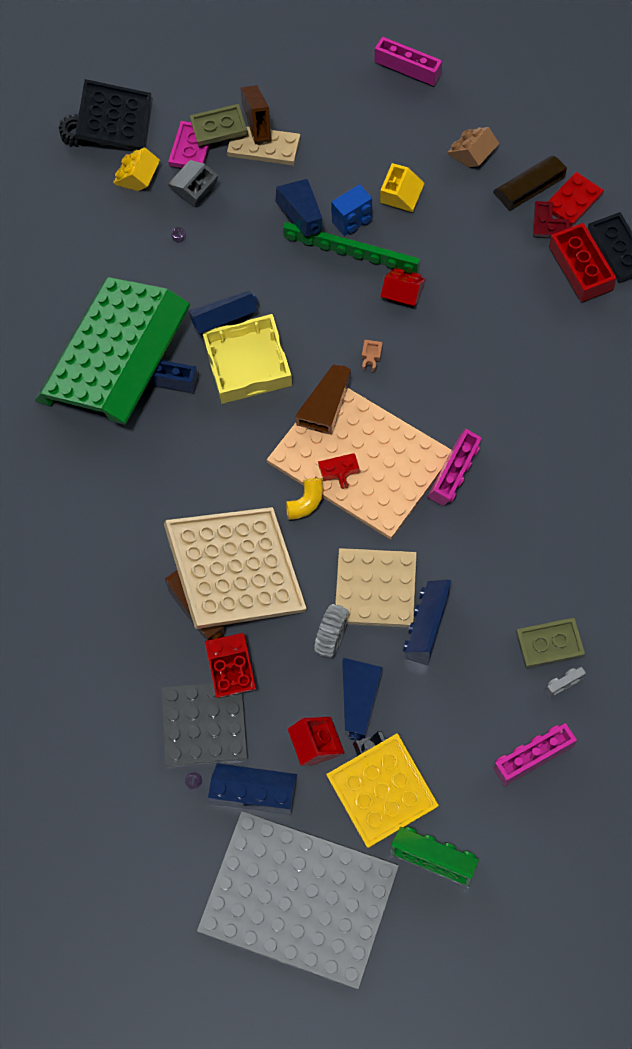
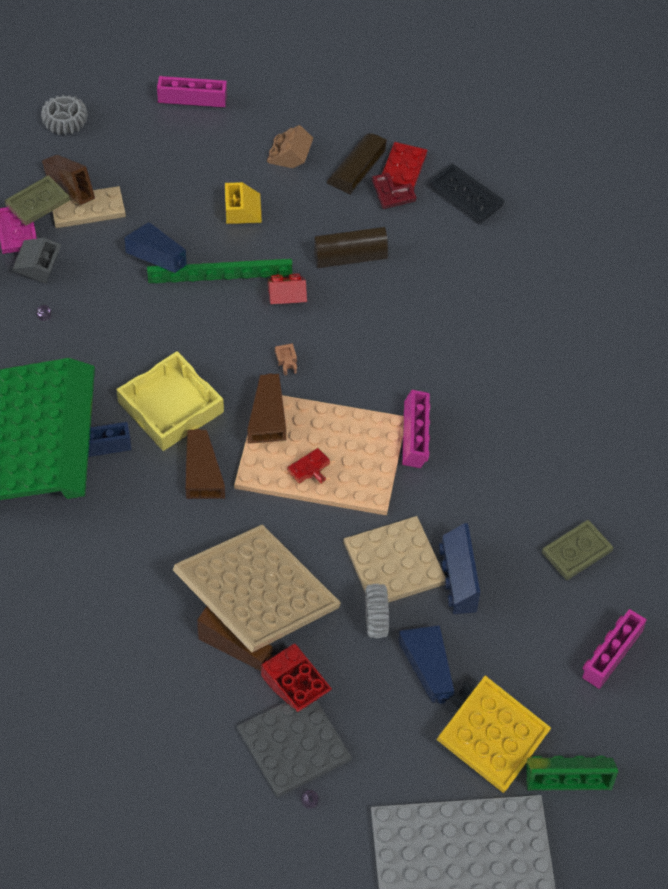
camera: 30 degrees left, 10 degrees down
(223, 311) = (125, 366): dark blue slope -> none
(244, 433) = (202, 469): none -> reddish brown slope
(252, 789) = (372, 783): dark blue slope -> none
(283, 47) = (64, 114): none -> light grey gear
(308, 502) = (294, 508): yellow cylinder -> none
(315, 740) = (408, 716): red slope -> none
(351, 210) = (206, 236): blue brick -> none
(481, 265) = (351, 247): none -> dark brown brick
(559, 685) = (611, 573): light grey plate -> none
(582, 262) = (441, 215): red brick -> none

